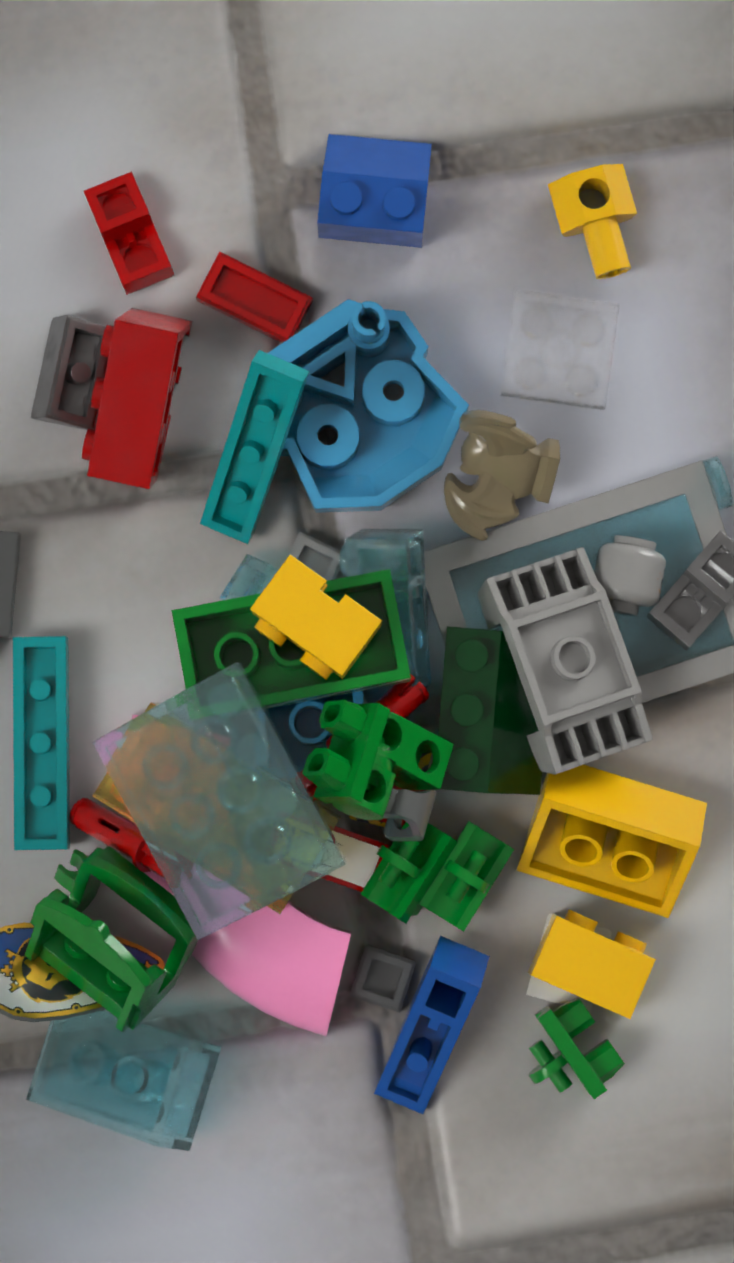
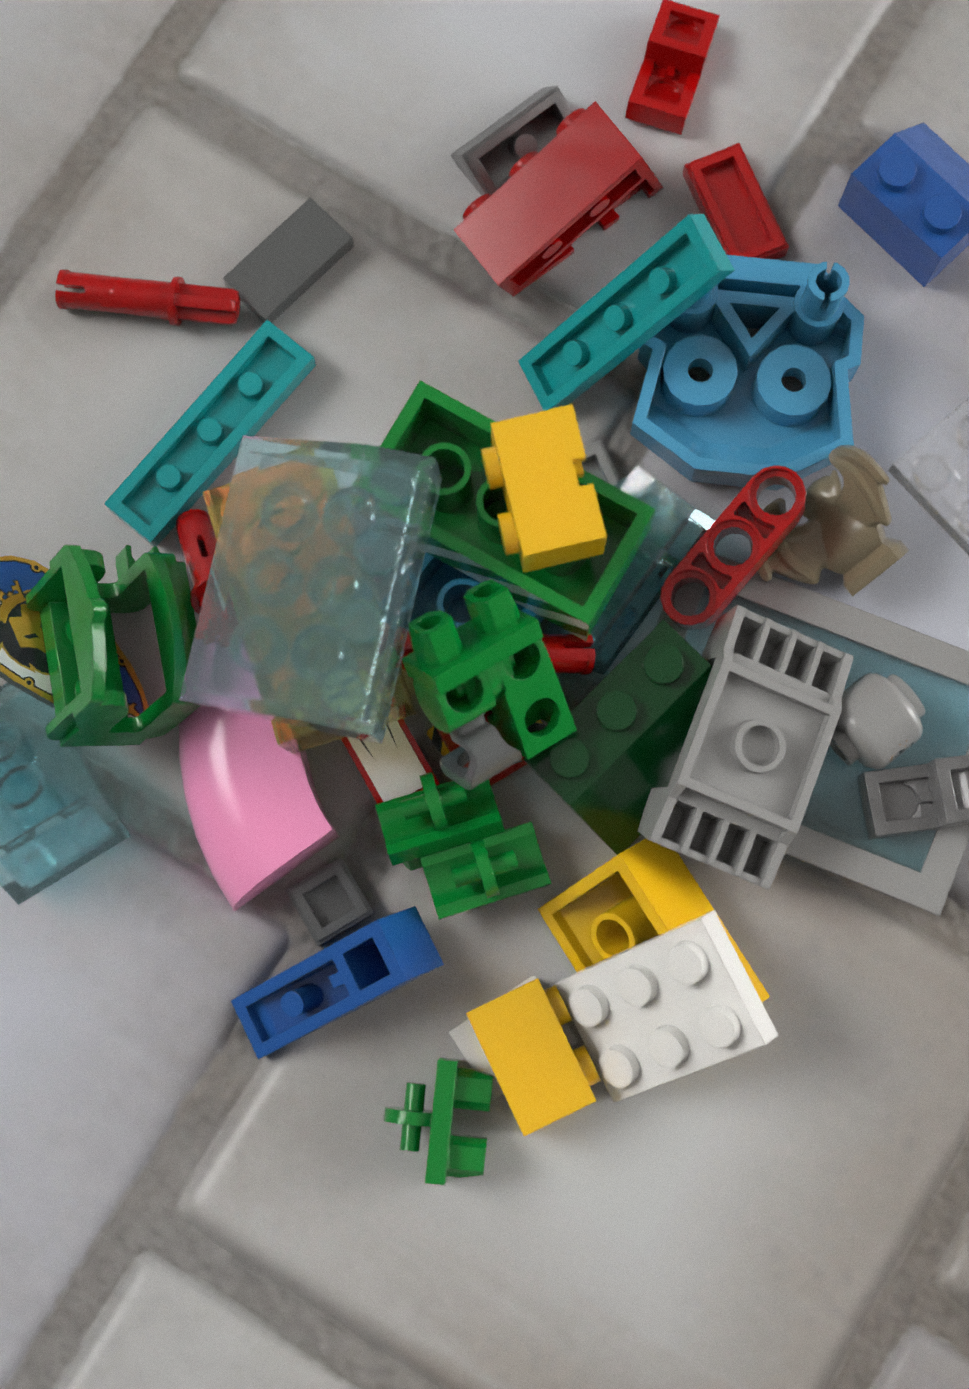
camera: 45 degrees right, 5 degrees down
(444, 566) = (740, 517): none -> red beam
(650, 867) = (666, 1008): none -> white plate

